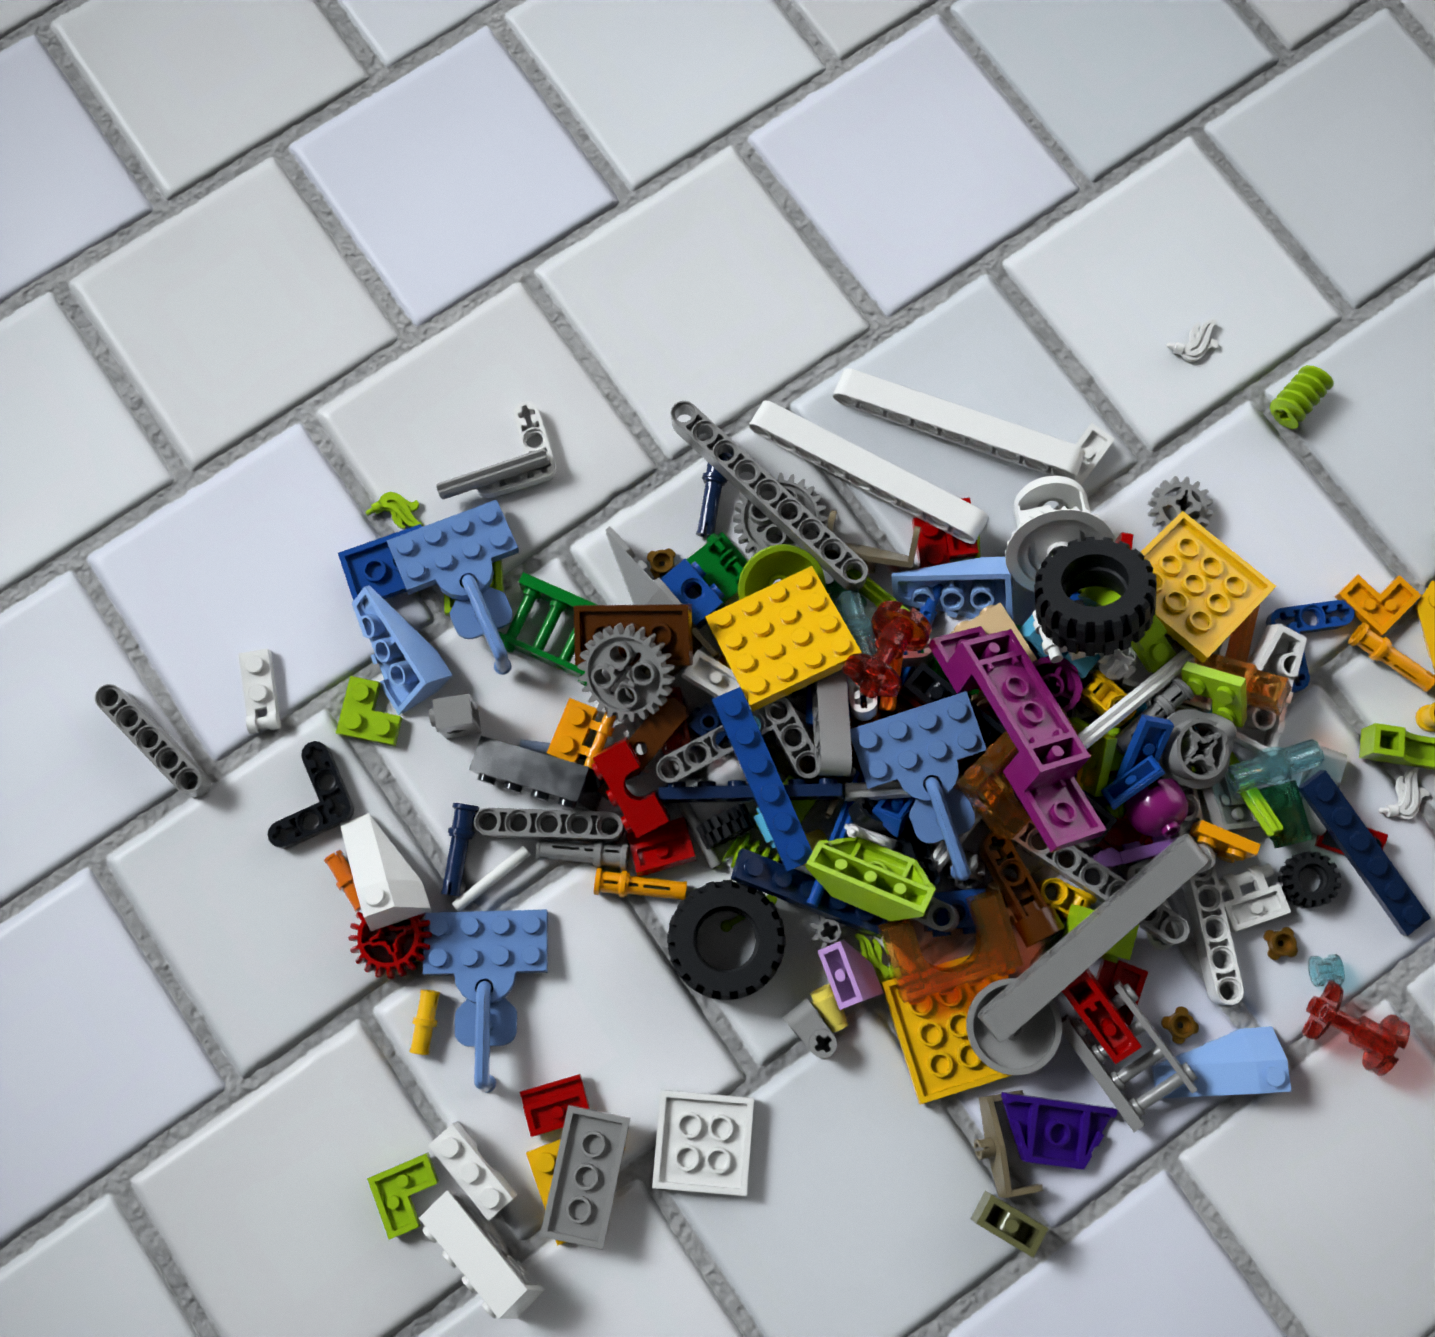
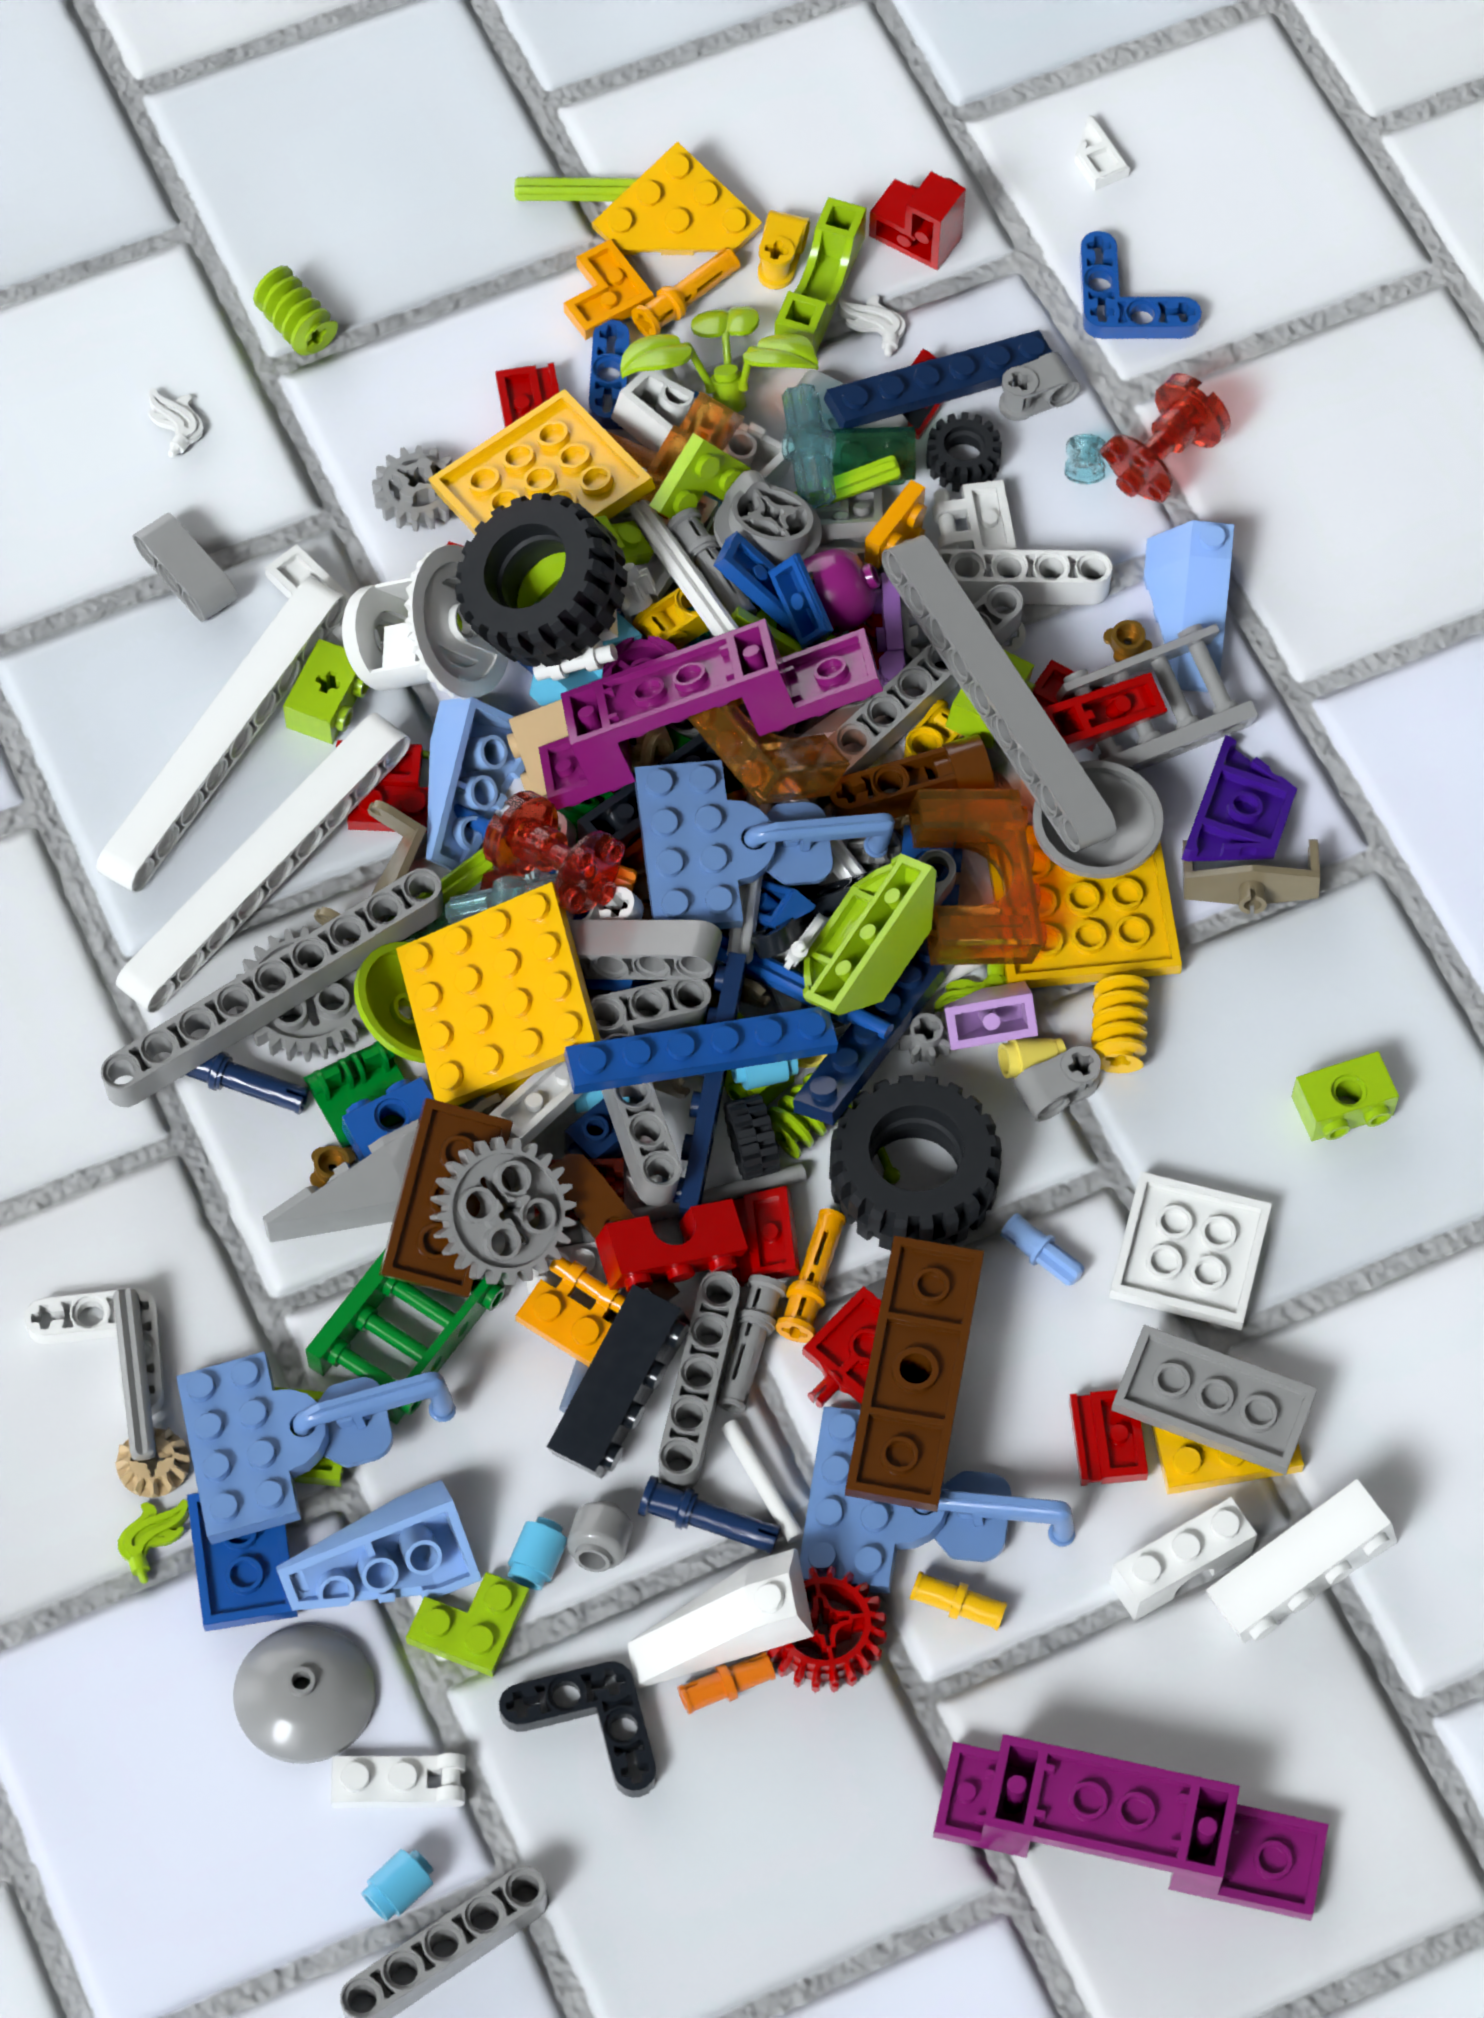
camera: 80 degrees left, 15 degrees down
(190, 704) = (398, 1884): none -> medium azure brick
(274, 1164) = (1134, 1818): none -> magenta bracket
(321, 637) = (310, 1721): none -> light grey dish
(393, 1191) = (1198, 1678): lime plate -> none
(416, 745) = (537, 1553): none -> medium azure brick
(432, 781) = (599, 1536): none -> light grey head
(437, 511) = (169, 1472): none -> tan gear
(455, 716) = (510, 1476): light grey brick -> none
(524, 966) = (914, 1374): none -> reddish brown plate
(592, 930) = (844, 1348): none -> red plate
(685, 1039) = (1042, 1250): none -> light blue axle
(854, 1254) = (1362, 1079): none -> lime brick
(866, 1065) = (1119, 1022): none -> yellow piece
(994, 472) = (324, 694): none -> lime brick
(1009, 1224) = (1353, 886): olive brick -> none
(1081, 372) = (185, 567): none -> light grey beam
(1277, 564) = (524, 390): none -> red plate
(1289, 947) = (1041, 494): pearl gold plate -> none
(1342, 728) = (726, 383): none -> lime plant
(1380, 925) = (1041, 383): none -> light grey piece

